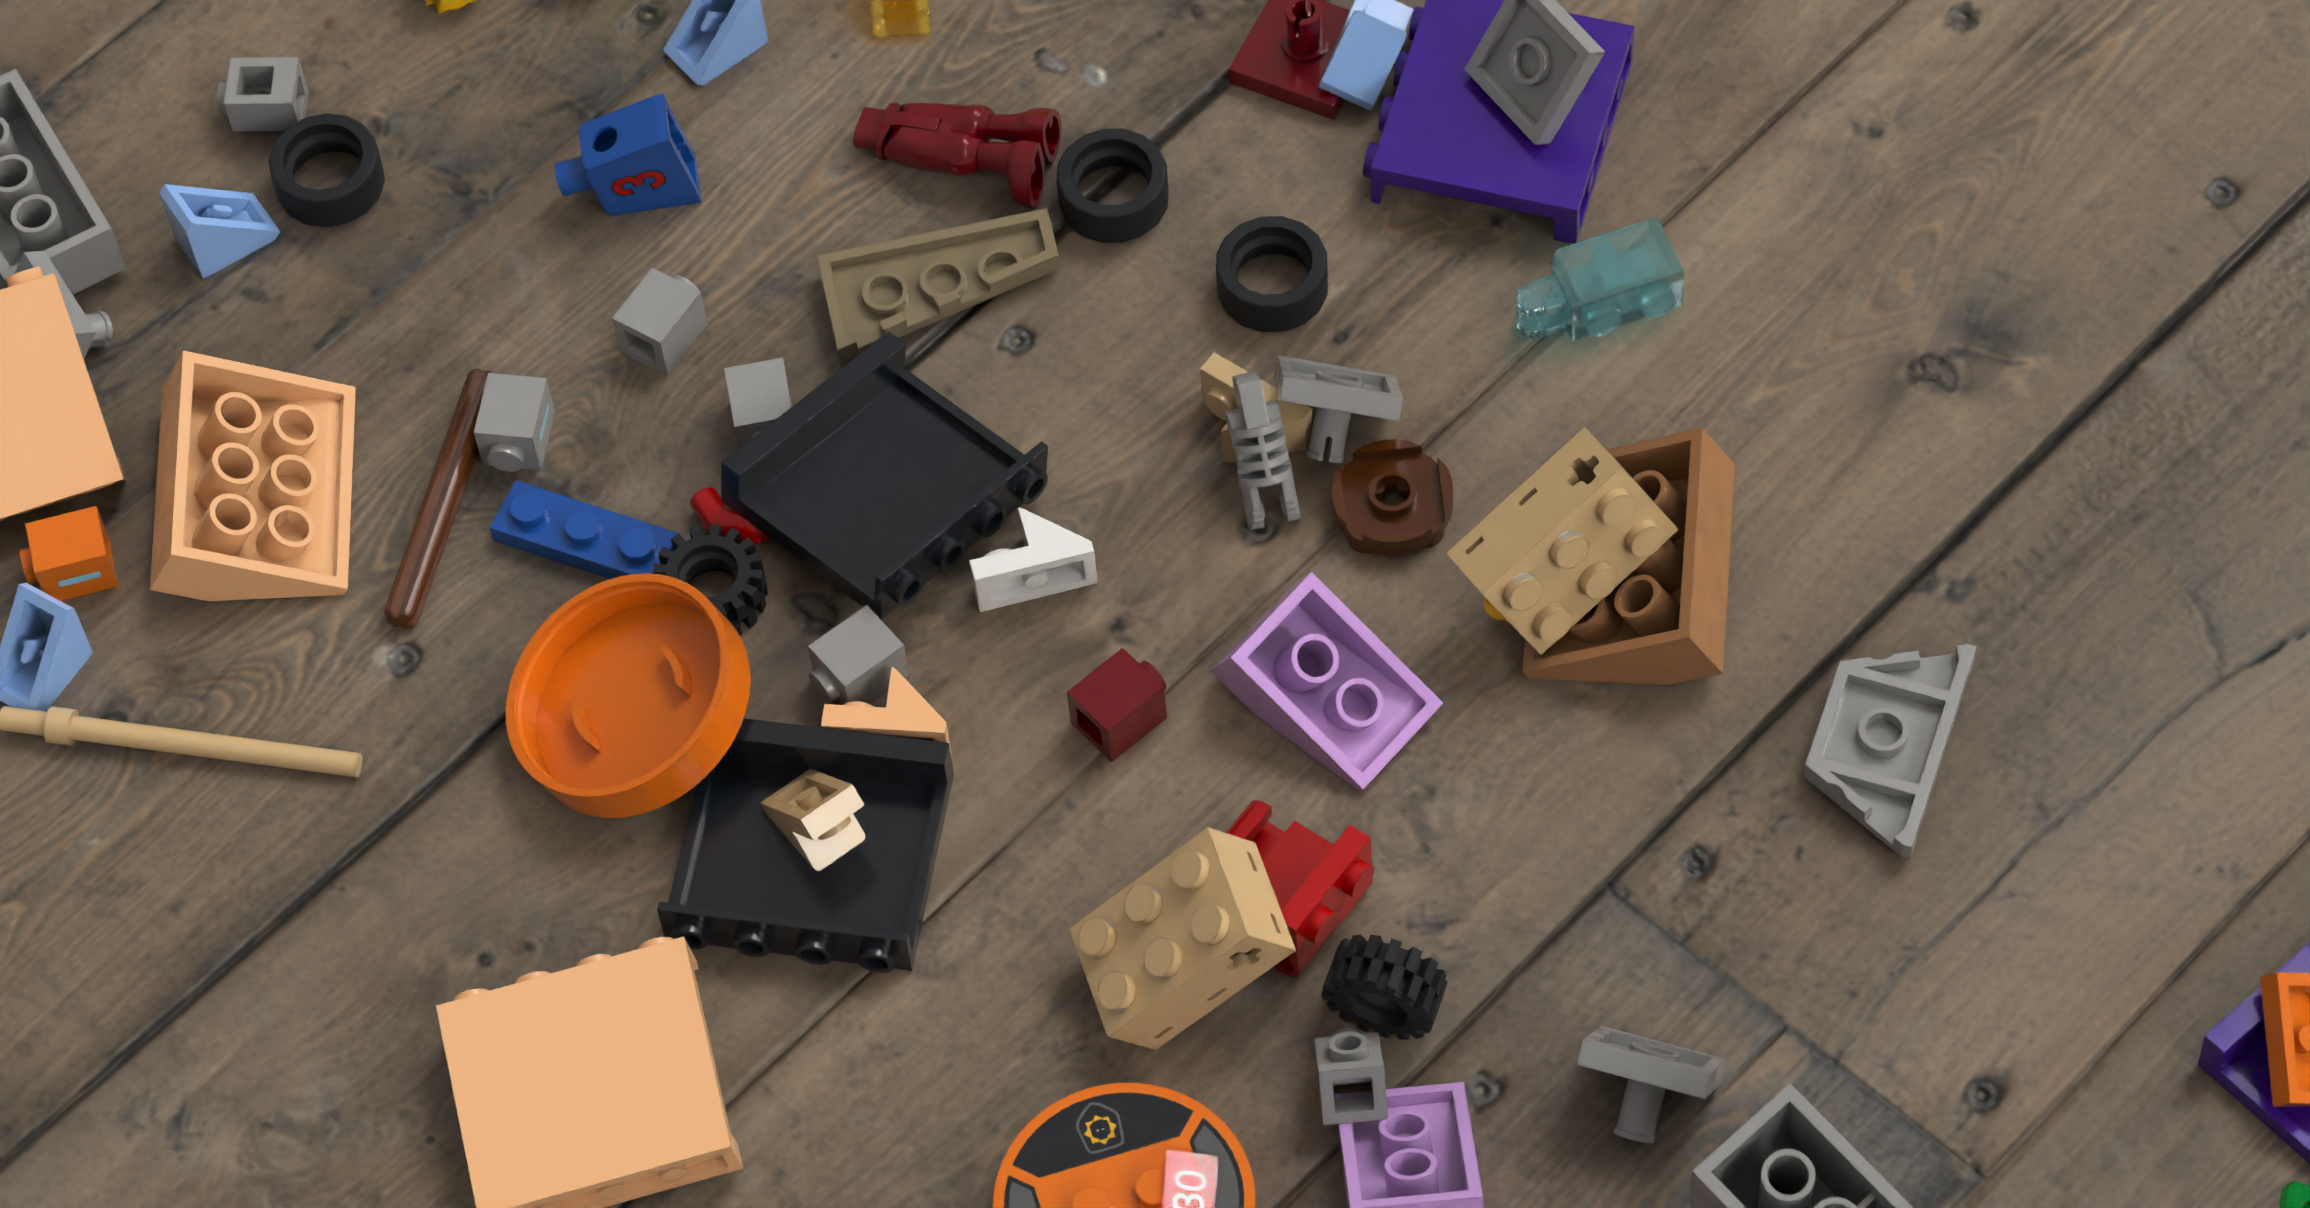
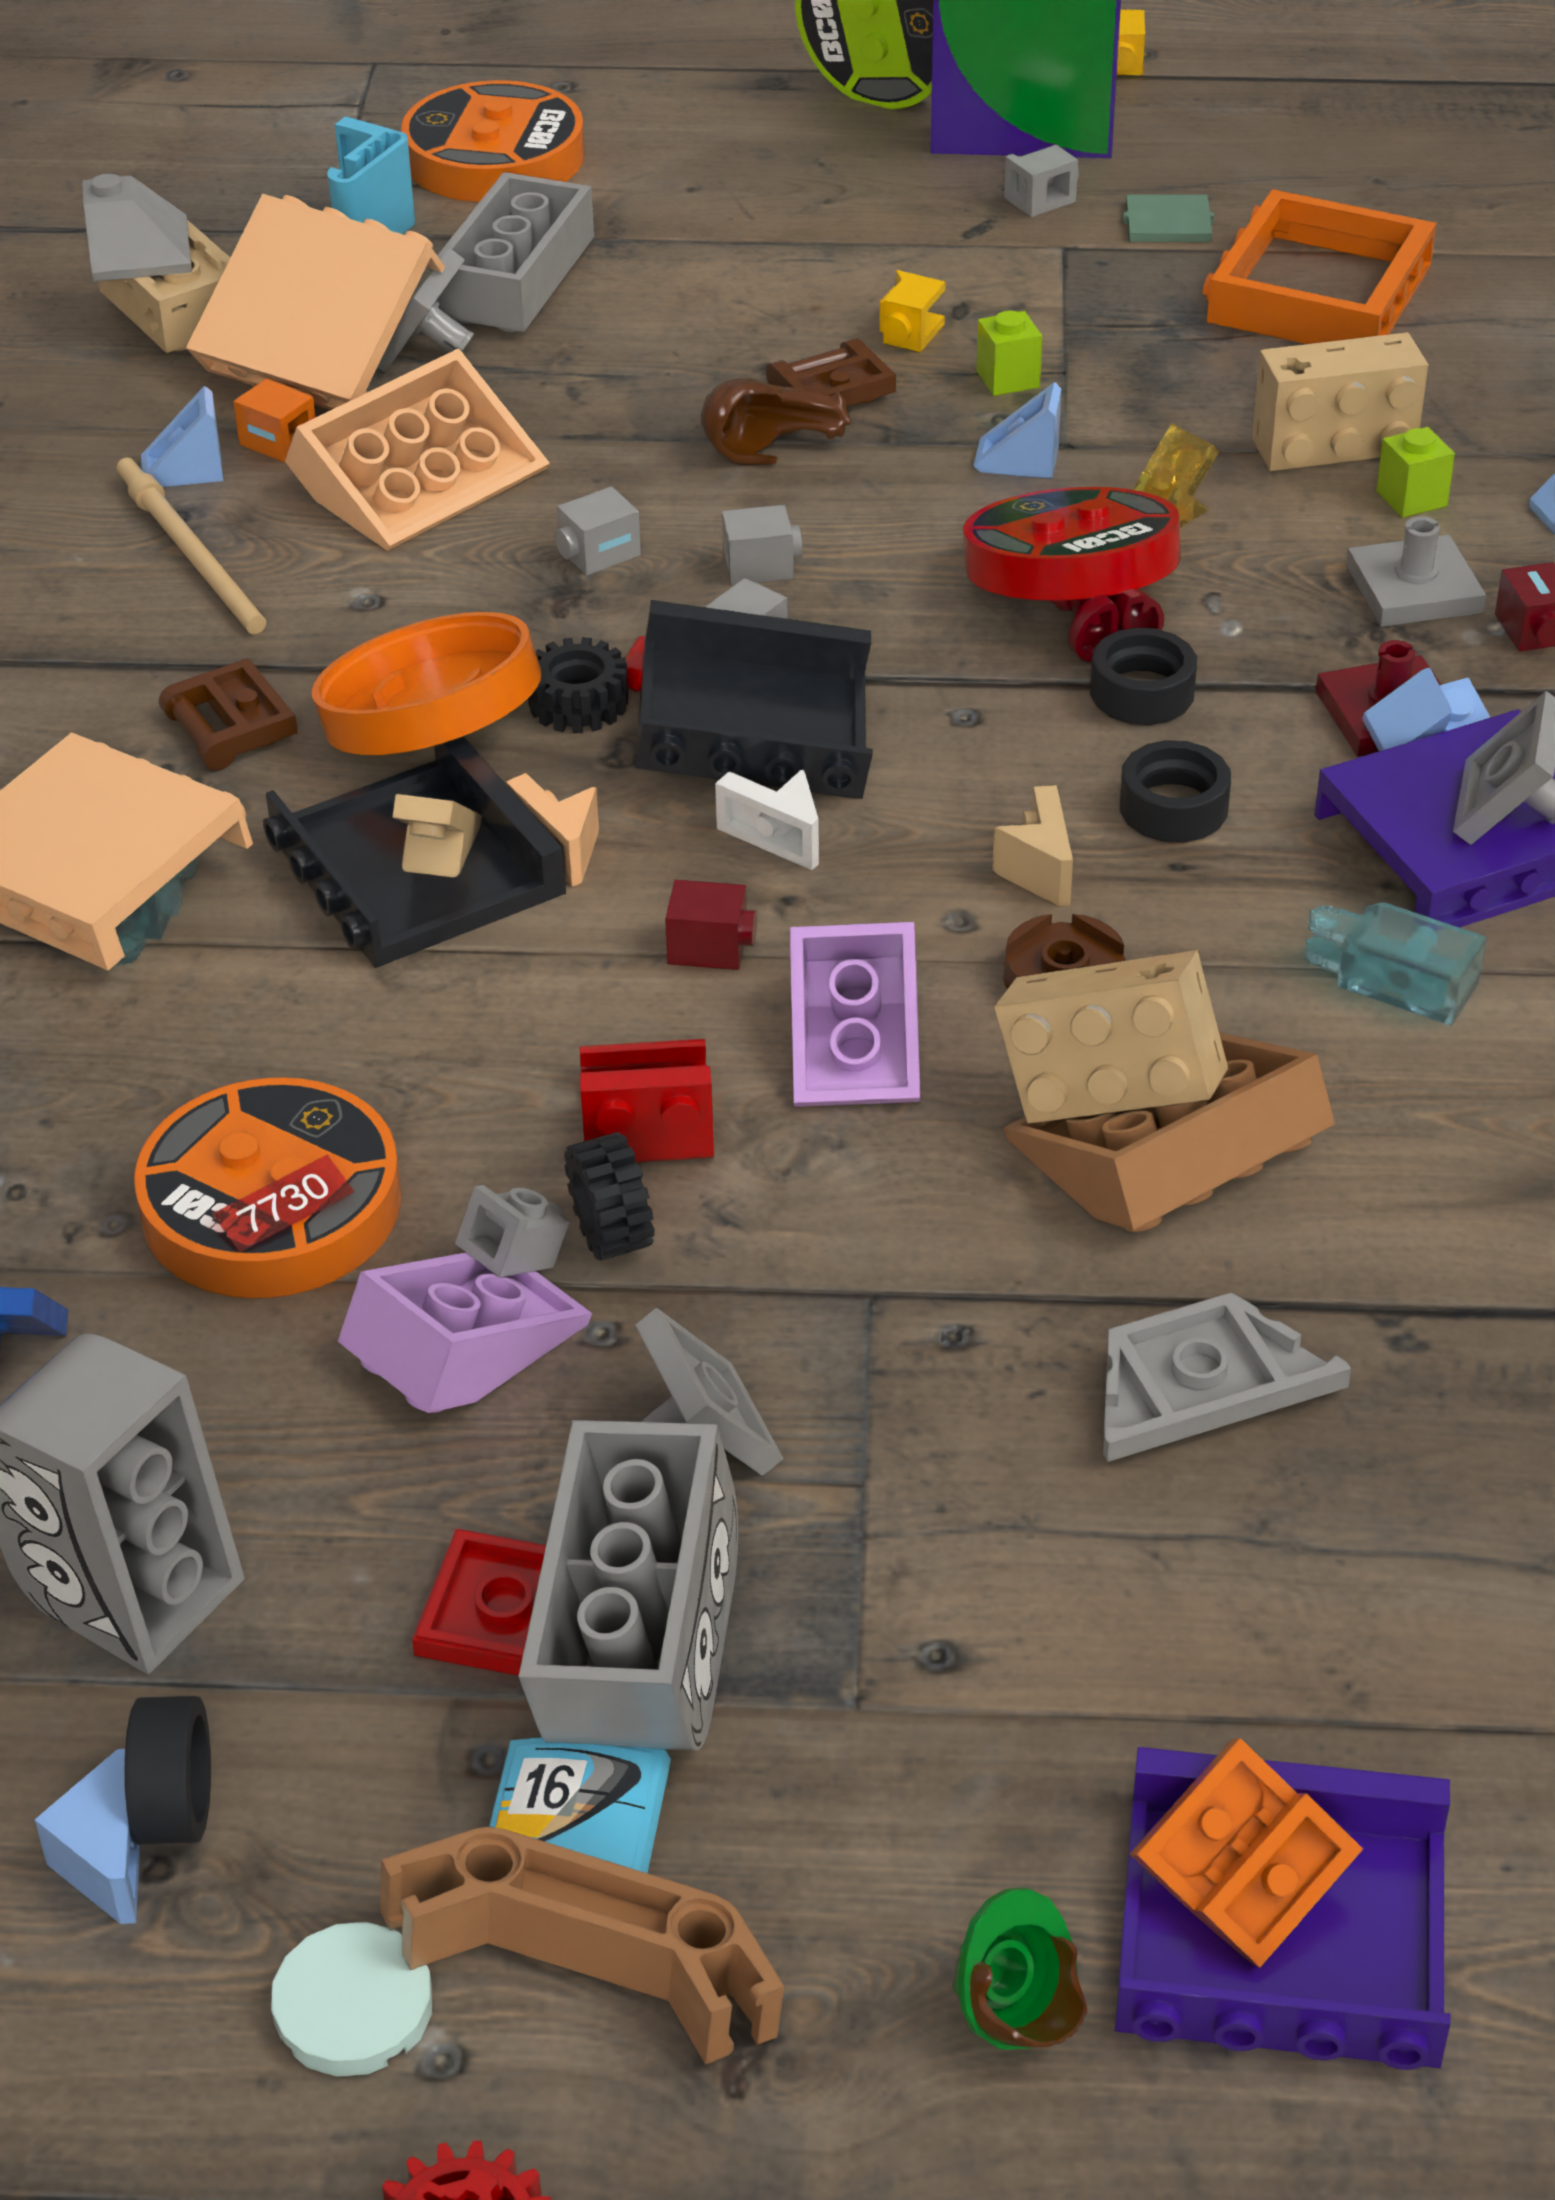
camera: 45 degrees right, 15 degrees down
(216, 225) = (592, 336): light blue slope -> none
(263, 93) = (717, 302): light grey brick -> none
(317, 136) = (693, 337): black tyre -> none
(437, 508) = (471, 552): reddish brown axle -> none
(469, 190) = (751, 414): none -> reddish brown piece
(476, 847) = (241, 700): none -> reddish brown plate
(483, 98) = (848, 370): none -> reddish brown plate
(578, 533) = (547, 604): blue plate -> none
(633, 160) = (866, 458): blue torso -> none
(856, 659) = (599, 766): light grey brick -> none
(917, 107) = (1072, 543): none -> red piece
(931, 276) = (955, 639): dark tan wing -> none
(1181, 939) = (515, 1045): tan piece -> none
(1260, 450) = (1001, 855): light grey hinge -> none
(1335, 394) = (1101, 868): light grey tile -> none

